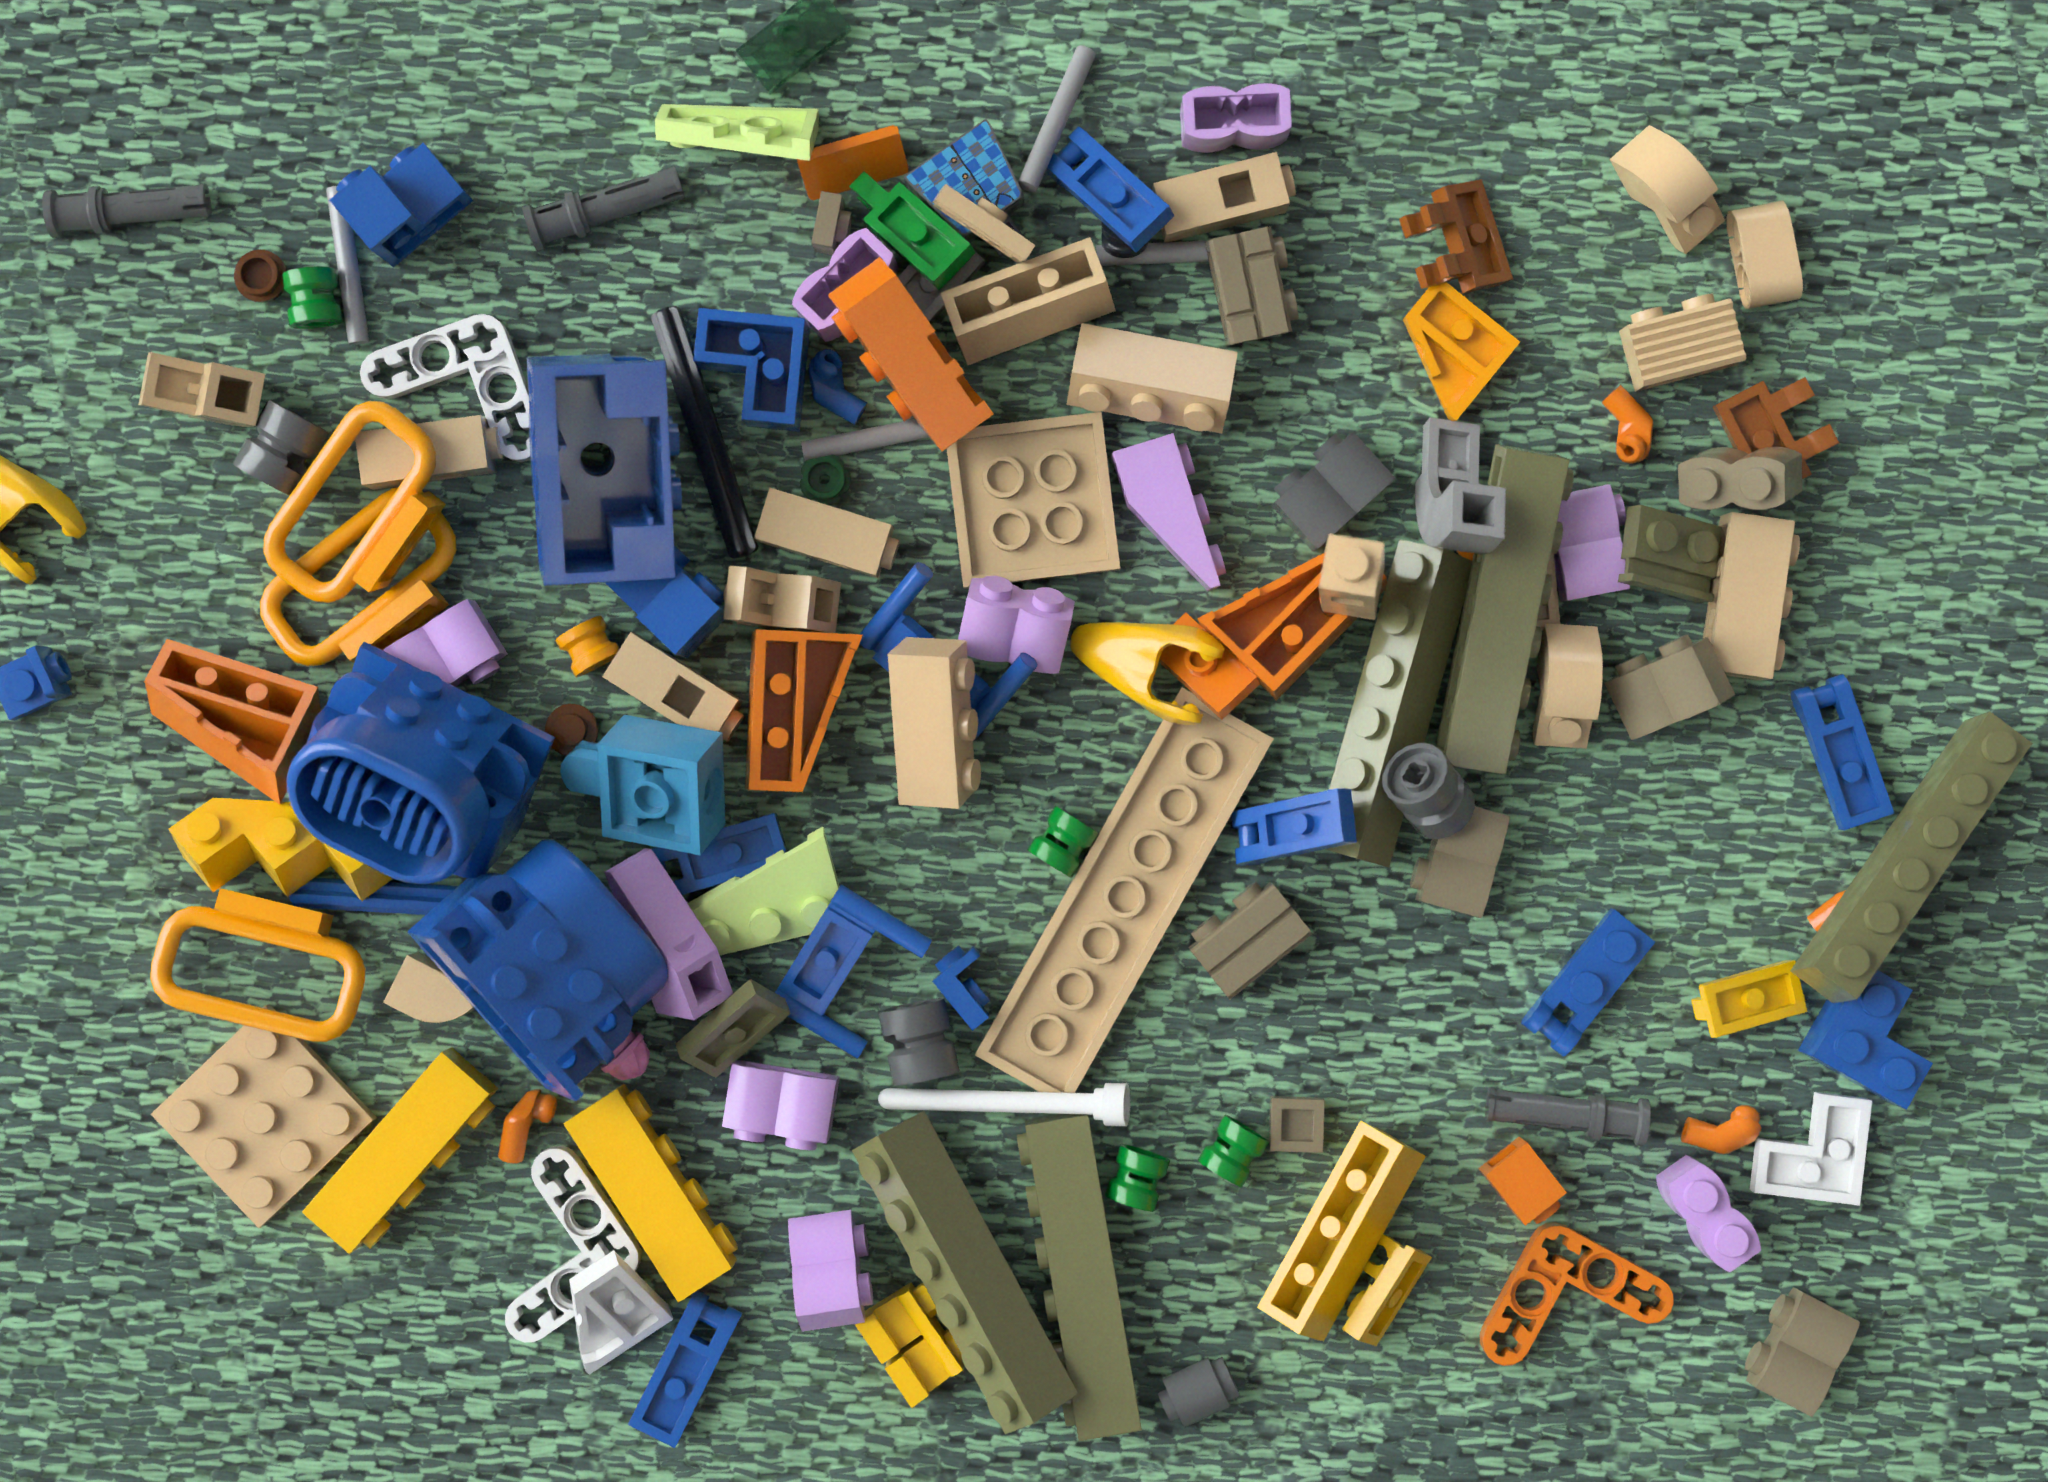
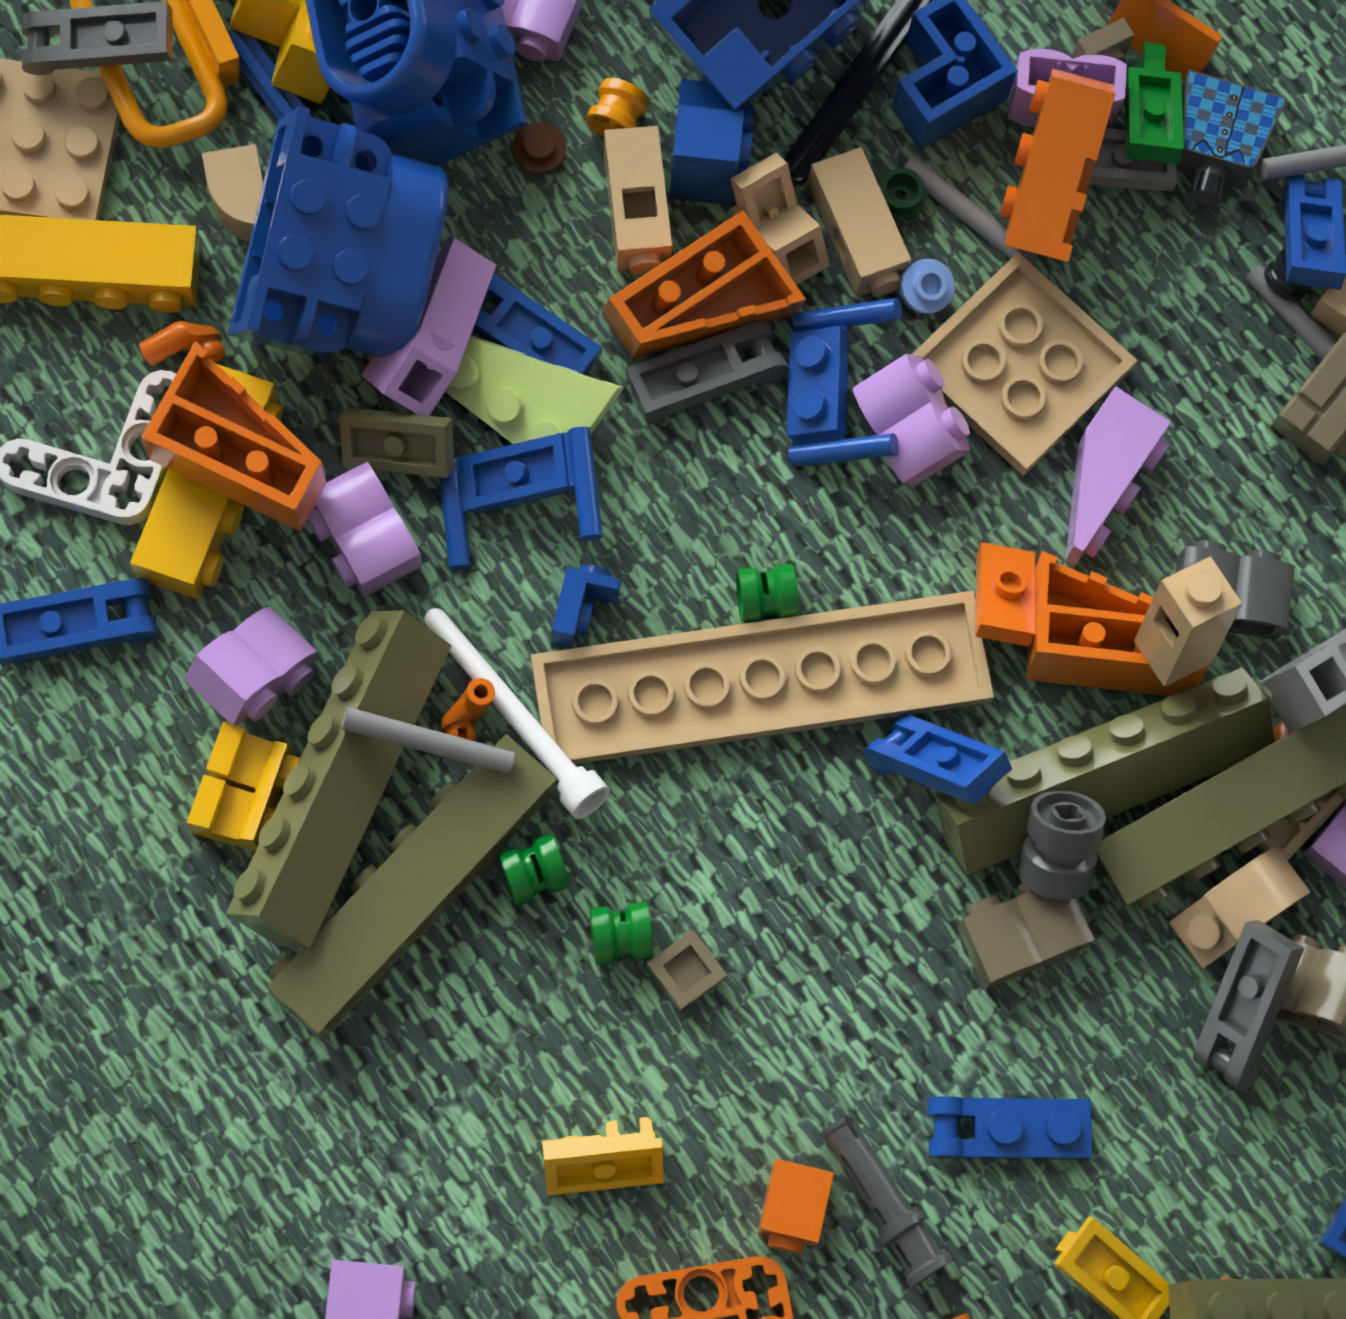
camera: 45 degrees right, 15 degrees down
(225, 1013) = (97, 36): none -> dark grey plate
(613, 1310) = (81, 520): white wing -> none
(630, 1058) = (305, 377): bright pink plate -> none
(649, 1167) = (231, 444): none -> orange wedge
(650, 807) = (552, 228): dark azure brick -> none
(829, 389) = (975, 145): blue arm -> none
(851, 748) = (705, 370): none -> dark grey plate
(918, 524) = (927, 286): none -> light blue plate
(918, 1041) = (503, 602): dark grey wheel -> none
(933, 722) = (780, 406): tan brick -> none
(980, 1141) = (469, 709): none -> orange arm
(985, 222) = (1209, 147): tan plate -> none
(992, 1195) = (427, 740): none -> light grey bar
(1028, 301) = (1174, 236): tan brick -> none
(1129, 656) = (958, 526): yellow animal -> none
(1152, 378) = (1198, 377): tan brick -> none
(1198, 1391) = (387, 1065): dark grey brick -> none
(1249, 938) = (811, 806): dark tan brick -> none
(1341, 1232) = (627, 1074): yellow brick -> none
(1645, 748) = (1247, 1003): none -> dark grey plate

